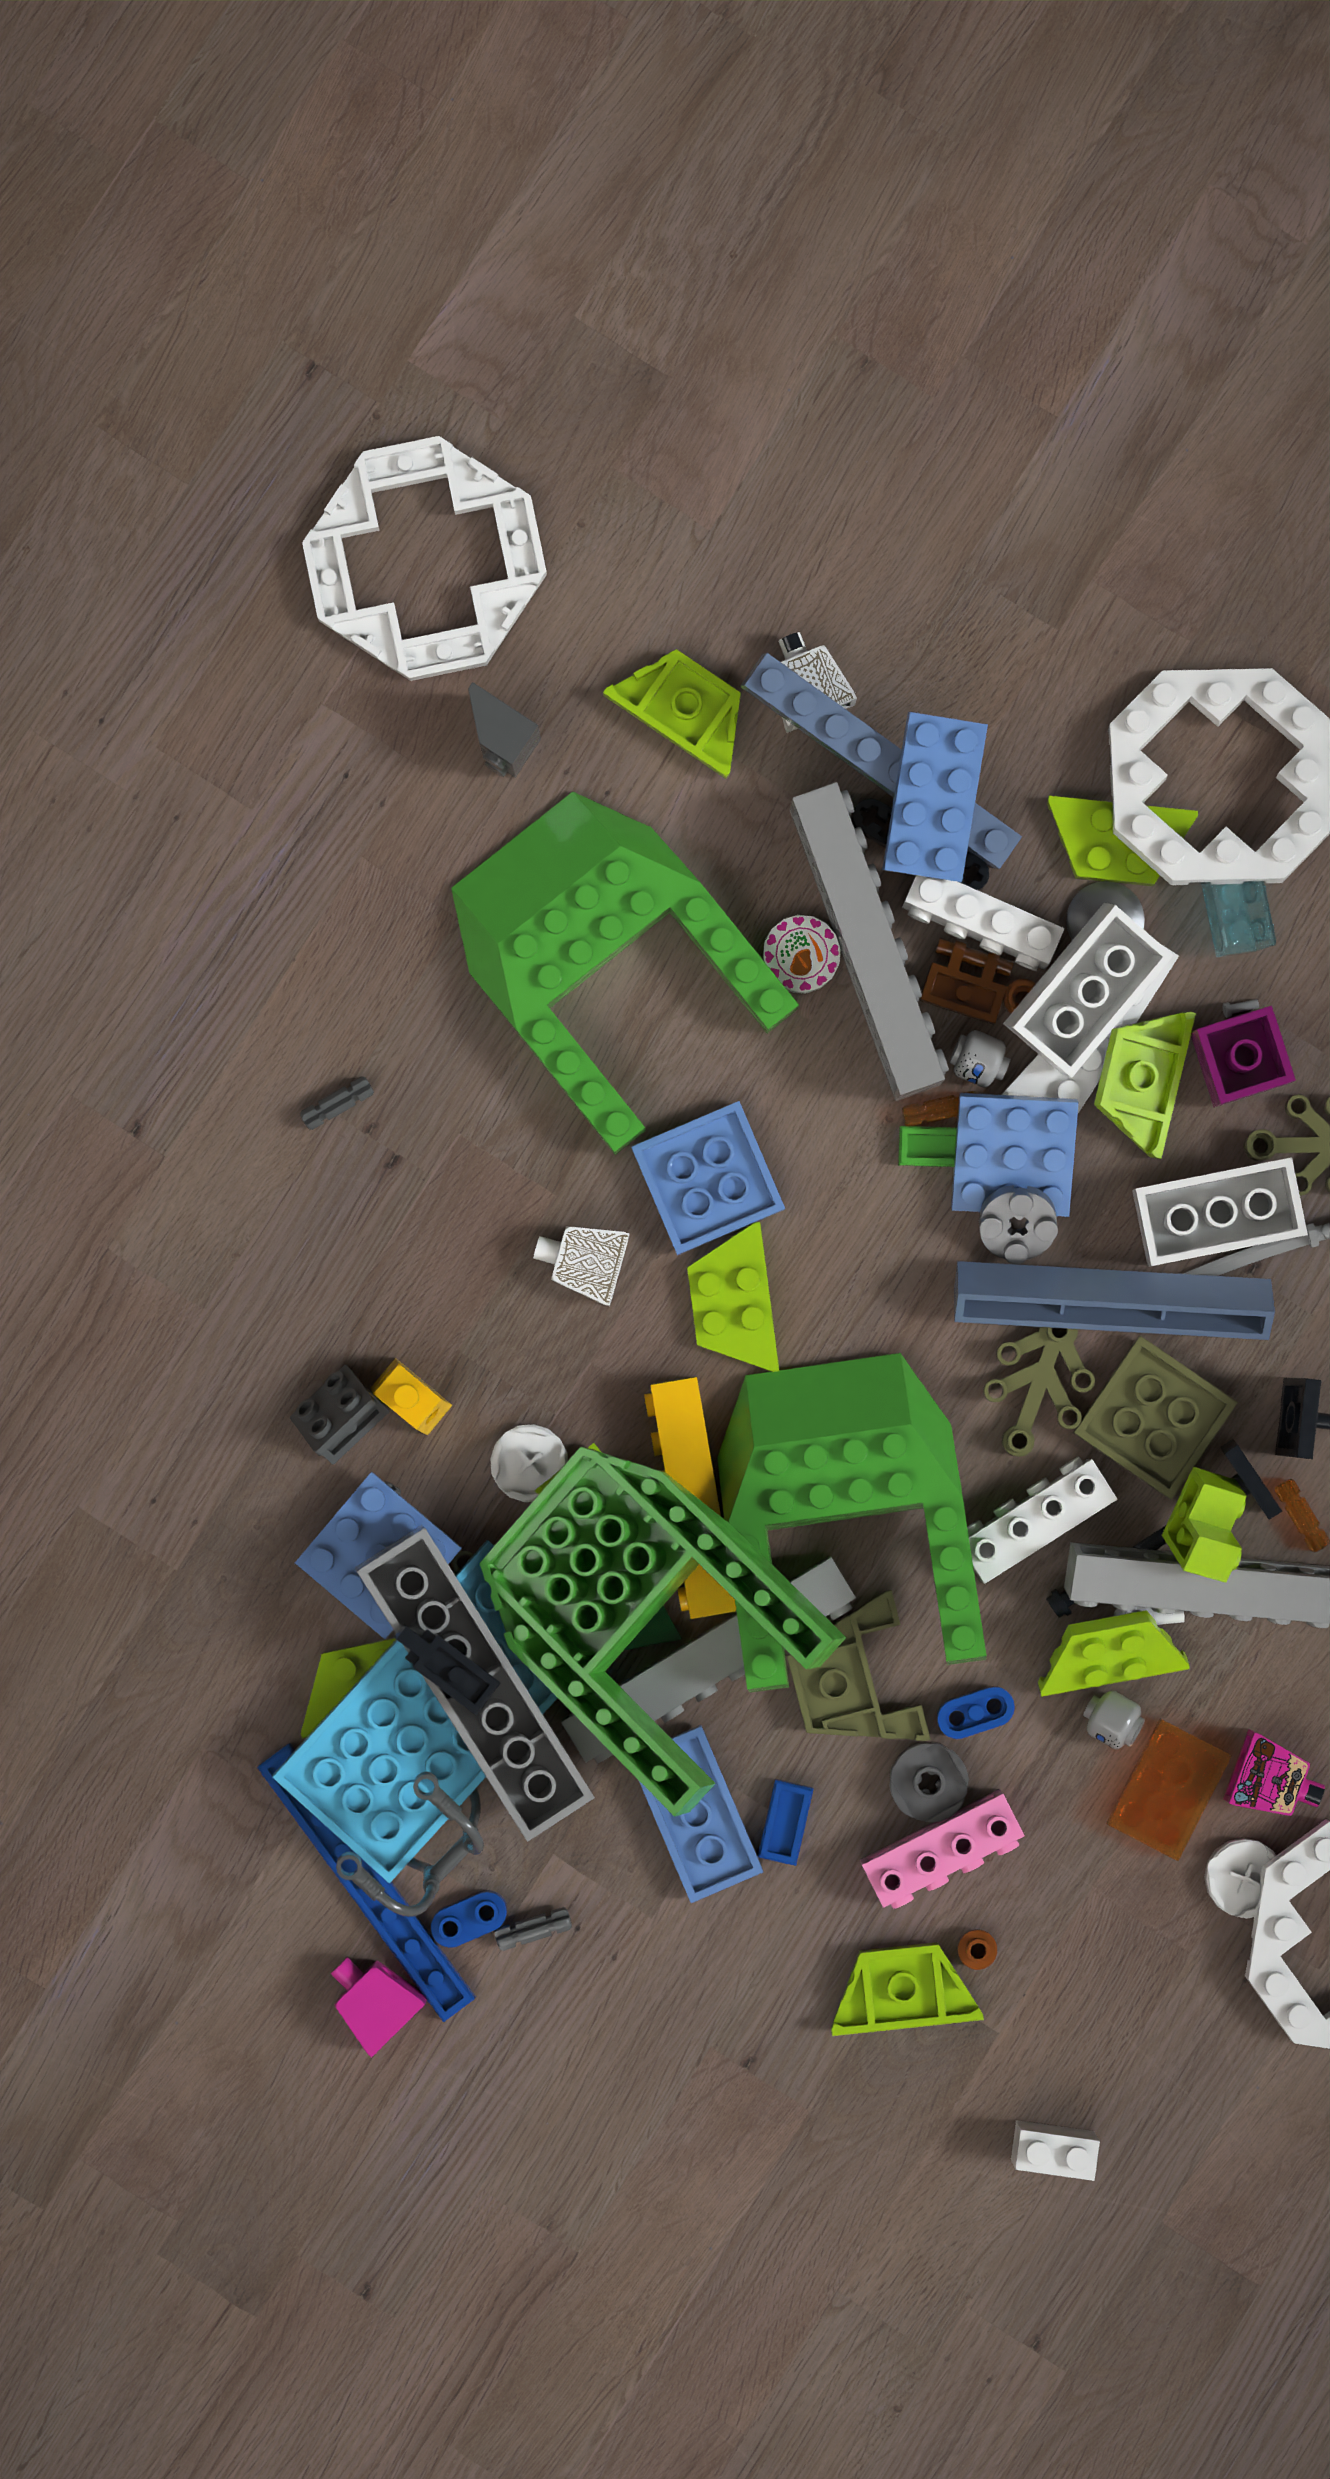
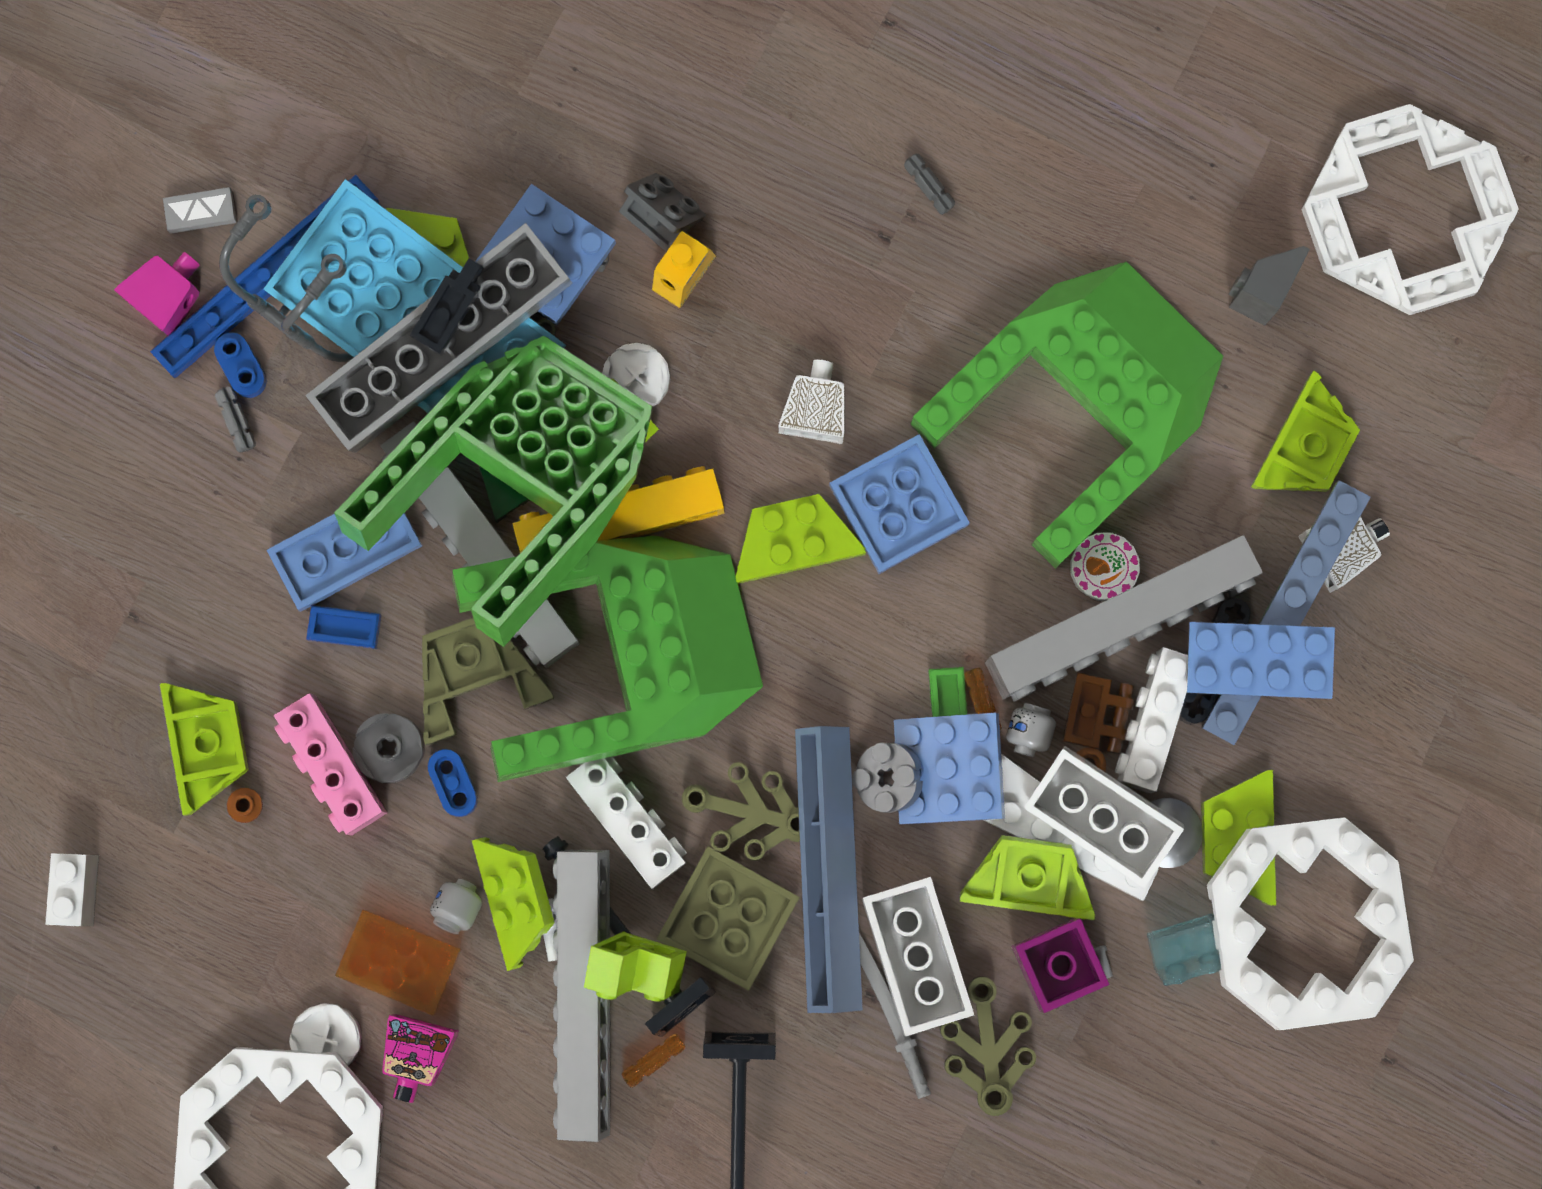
camera: 85 degrees right, 5 degrees down
(280, 1953) = (199, 210): none -> light grey tile

